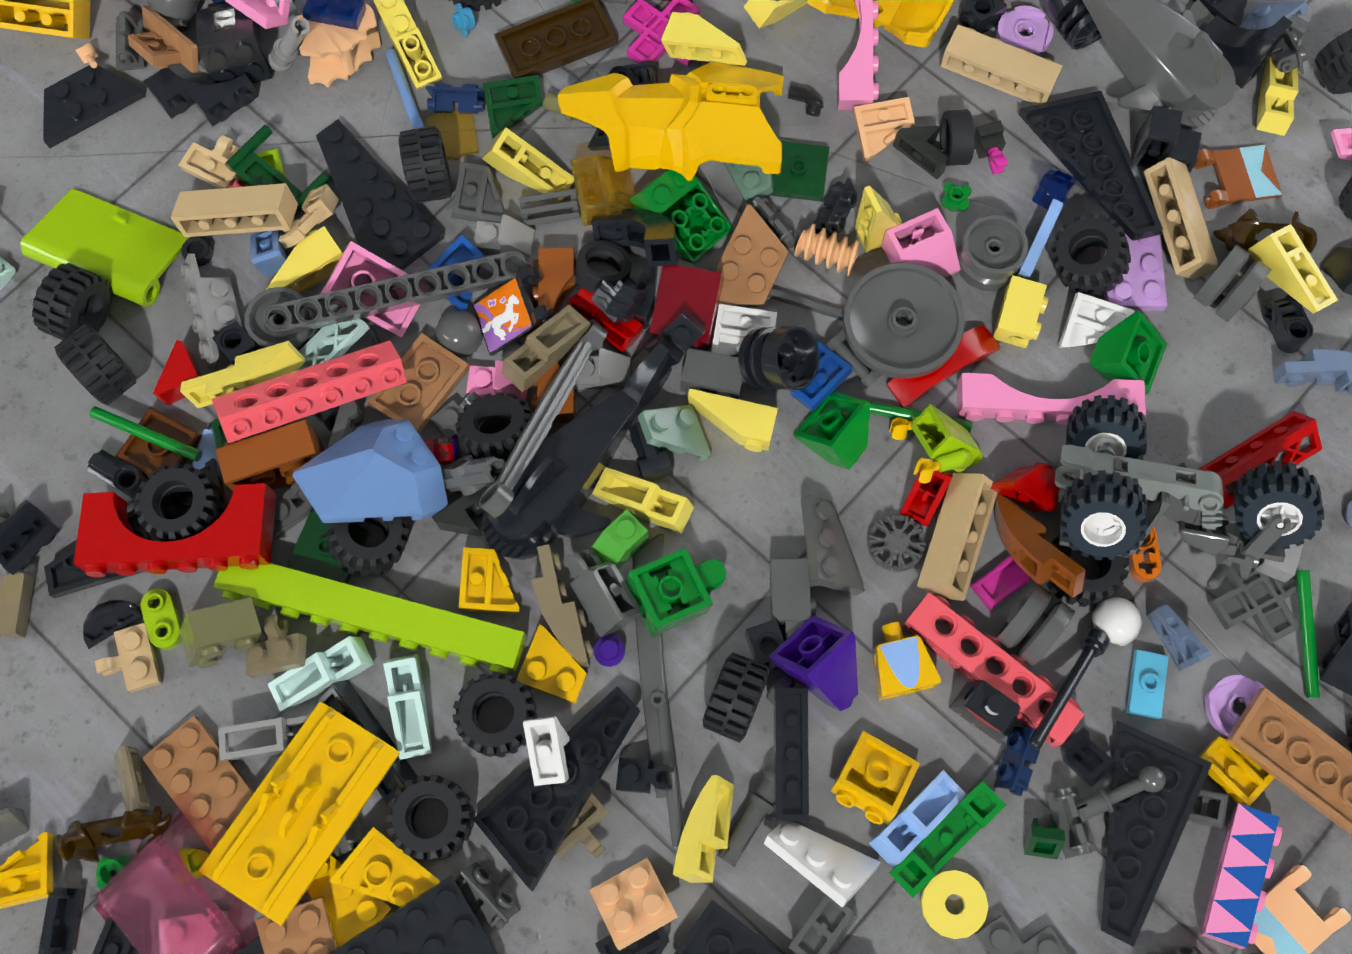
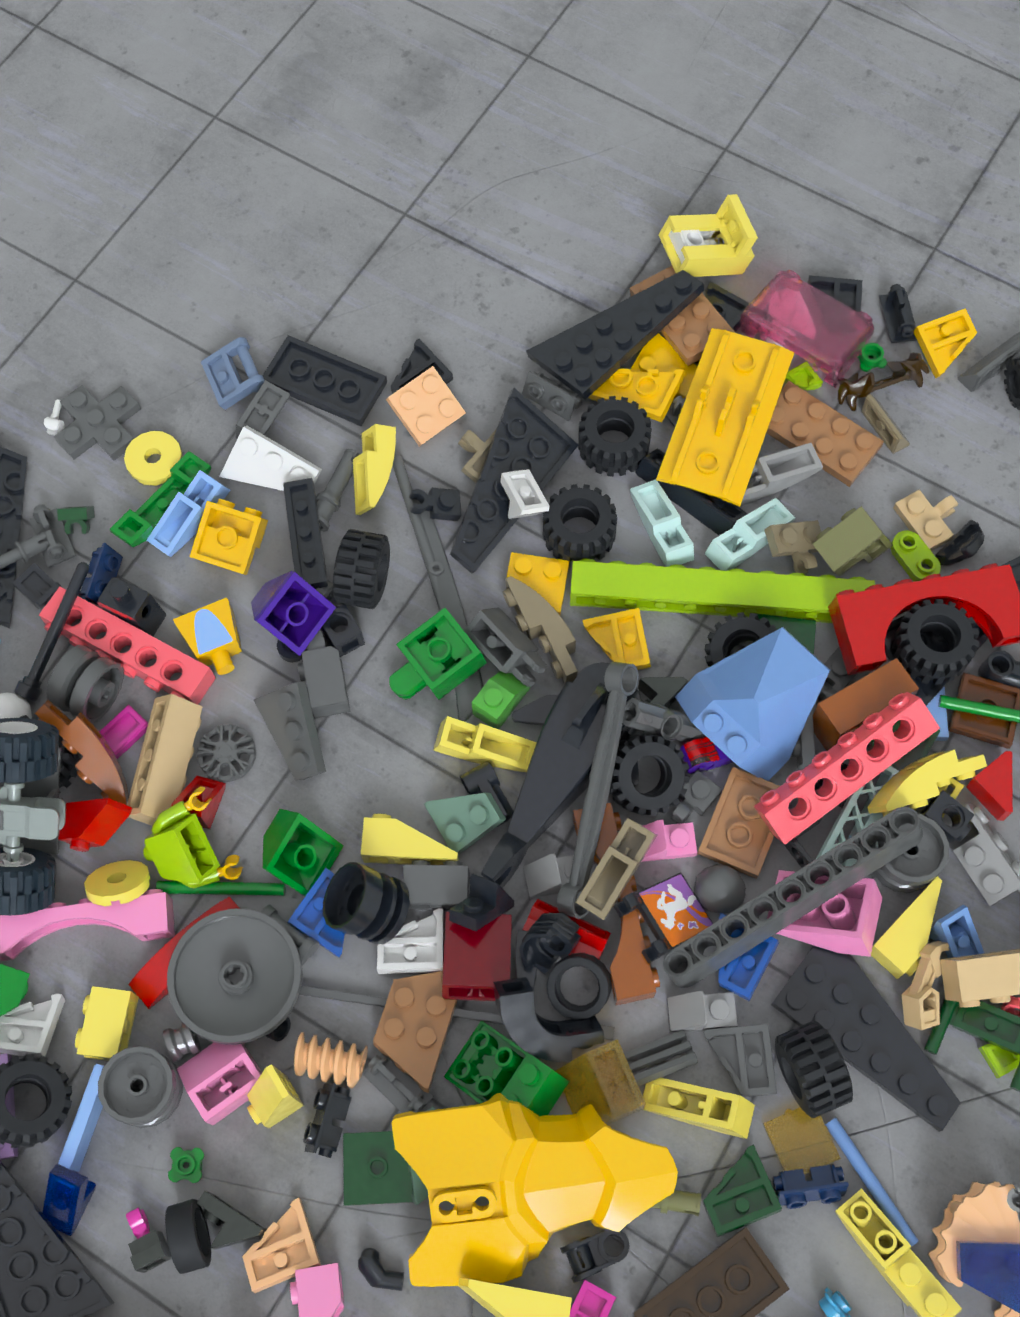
camera: 170 degrees right, 5 degrees down
(609, 650) = (488, 599): dark purple plate -> none
(960, 284) = (180, 1042): none -> flat silver wheel
(1010, 442) = (117, 881): none -> light yellow tile

